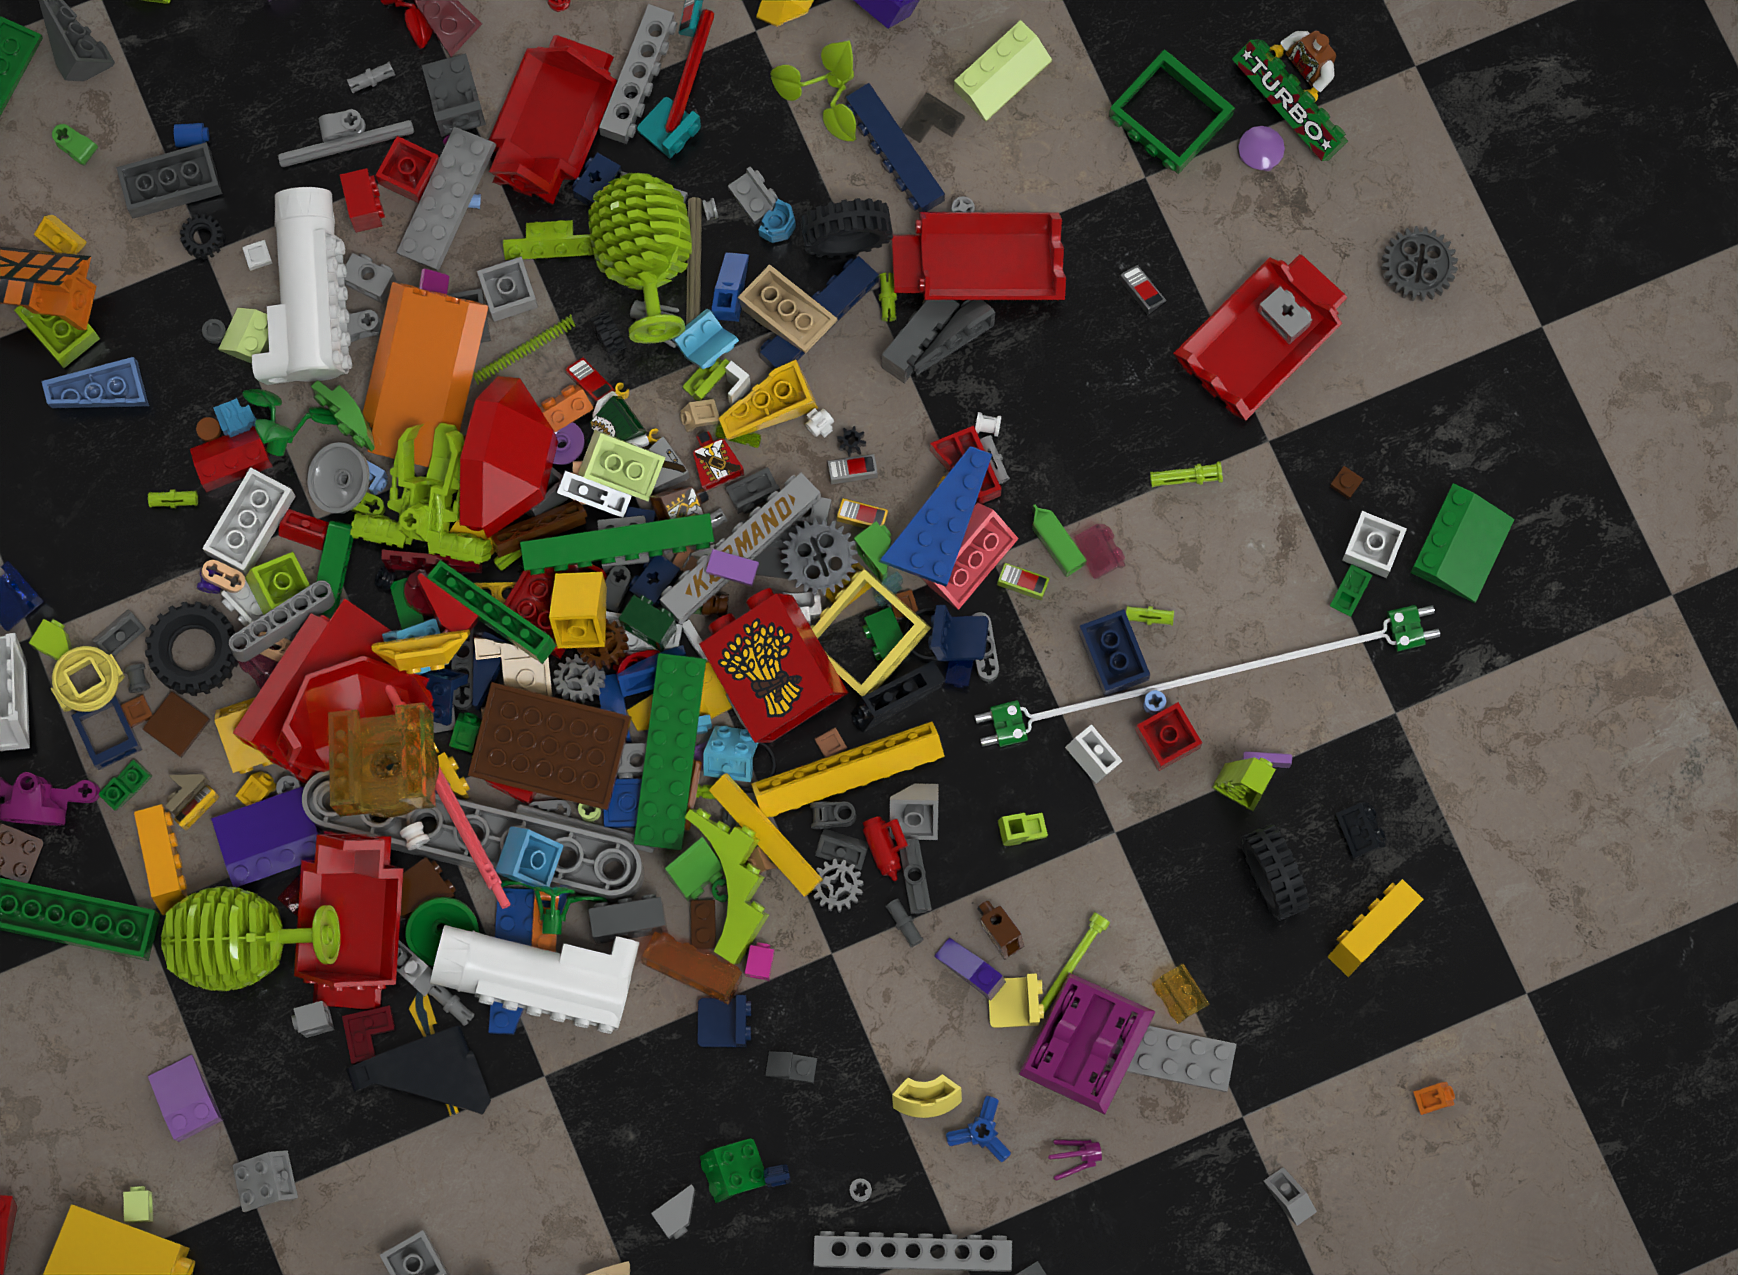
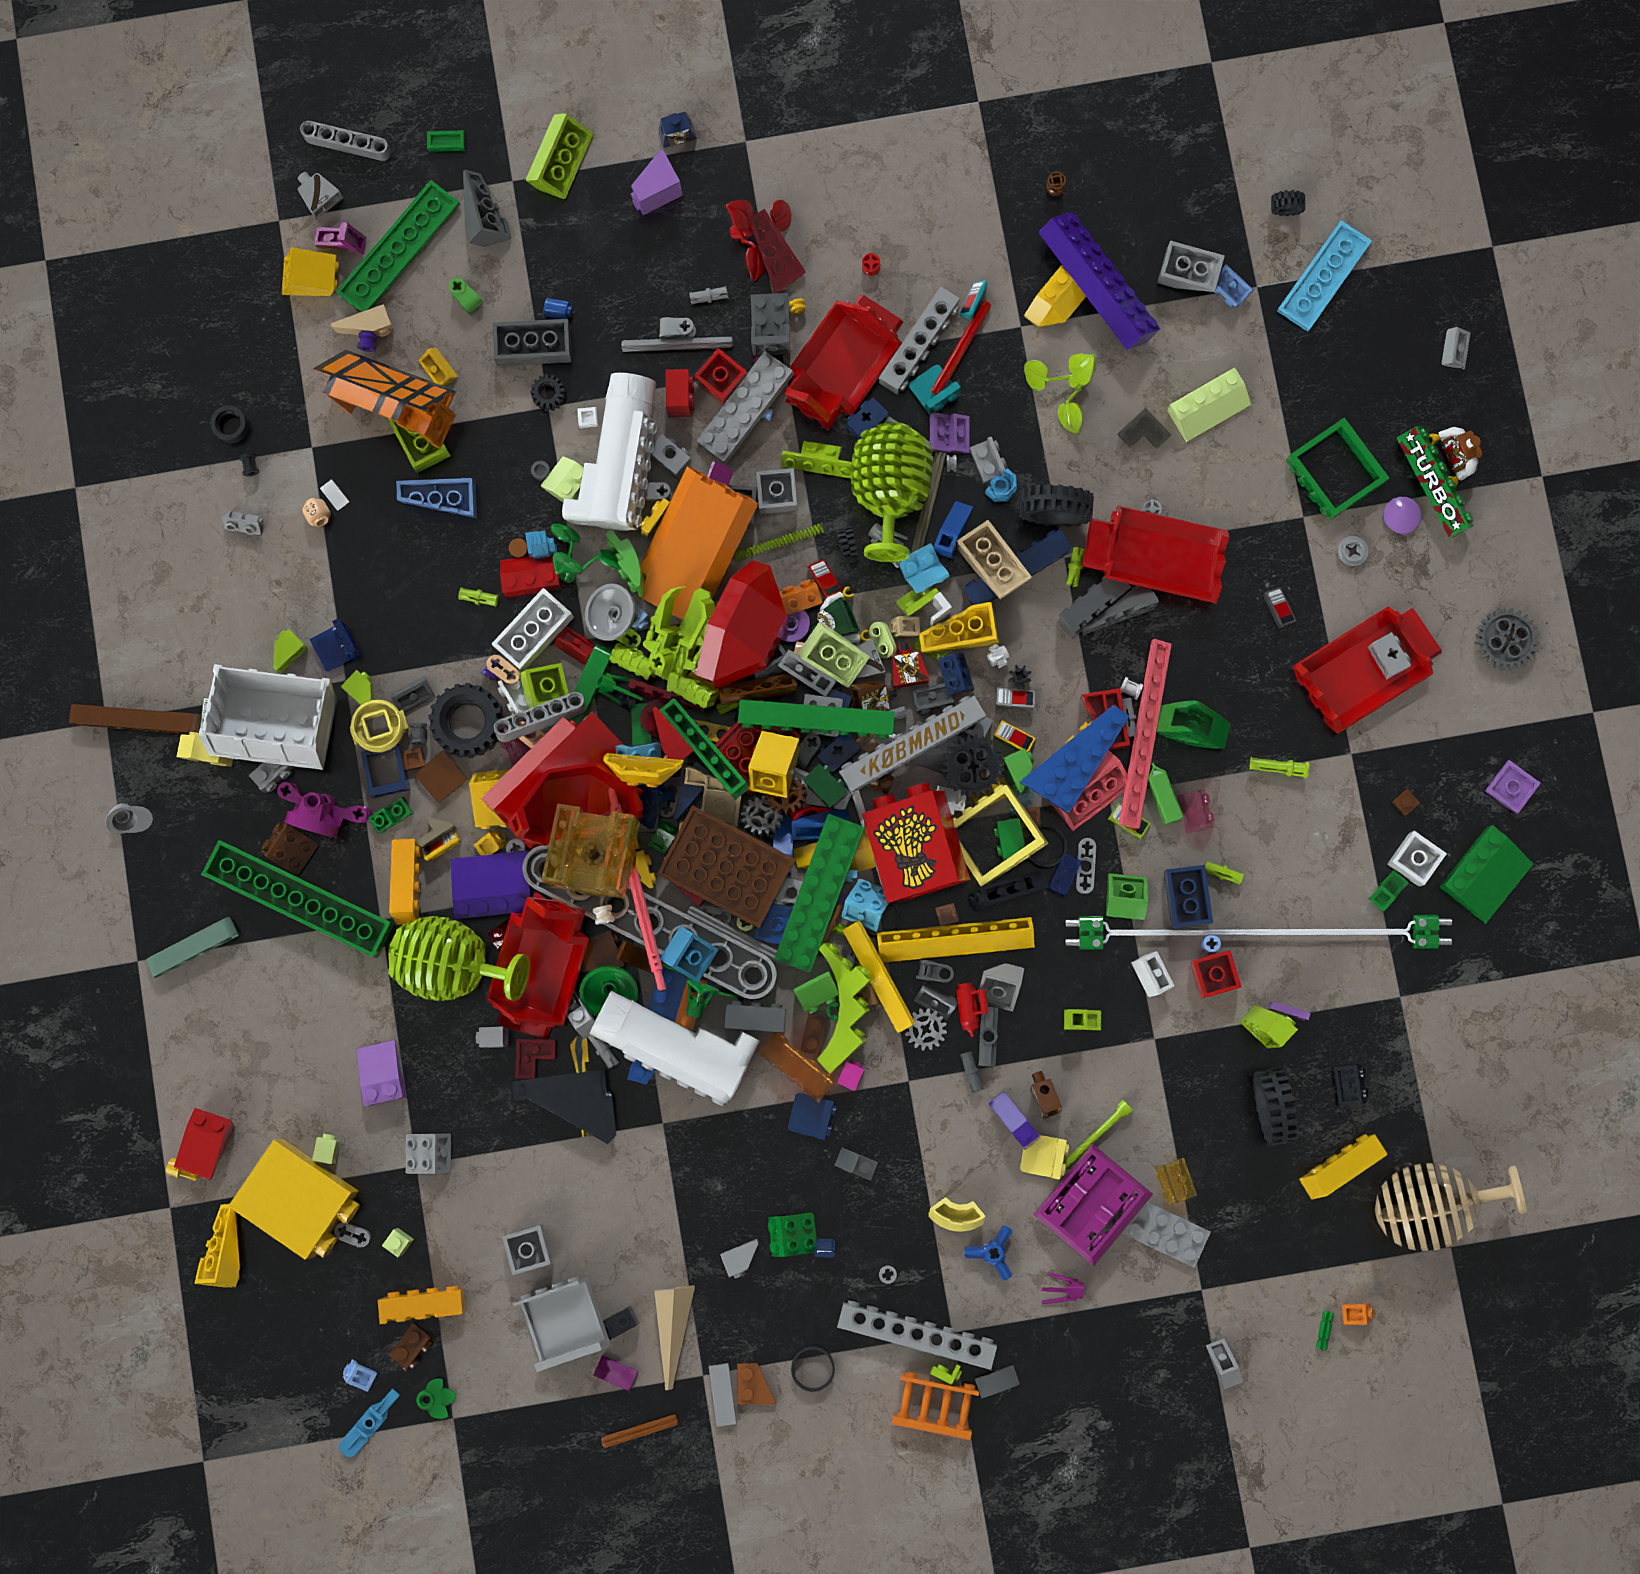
camera: 20 degrees right, 5 degrees up
(354, 564) = (606, 684): none -> green plant
(362, 361) = (657, 513): none -> yellow plate
(465, 882) = (634, 956): none -> reddish brown bracket
(481, 66) = (797, 306): none -> yellow bush
(677, 434) = (883, 639): none -> yellowish green plate
(699, 174) = (949, 433): none -> medium lavender slope
(732, 567) = (902, 760): medium lavender tile -> none
(774, 455) = (956, 673): none -> dark blue bracket
(894, 149) = (1109, 449): dark blue brick -> none
(958, 636) = (1068, 855): dark blue bracket -> none
(1017, 473) = (1145, 734): none -> coral plate
(1041, 671) = (1127, 896): none -> bright green slope
(1070, 448) = (1193, 724): none -> green piece
(1207, 194) = (1361, 550): none -> light grey gear
(1400, 1127) = (1325, 1330): none -> green axle
(1467, 434) = (1512, 787): none -> medium lavender plate
(1495, 941) = (1440, 1204): none -> tan plant

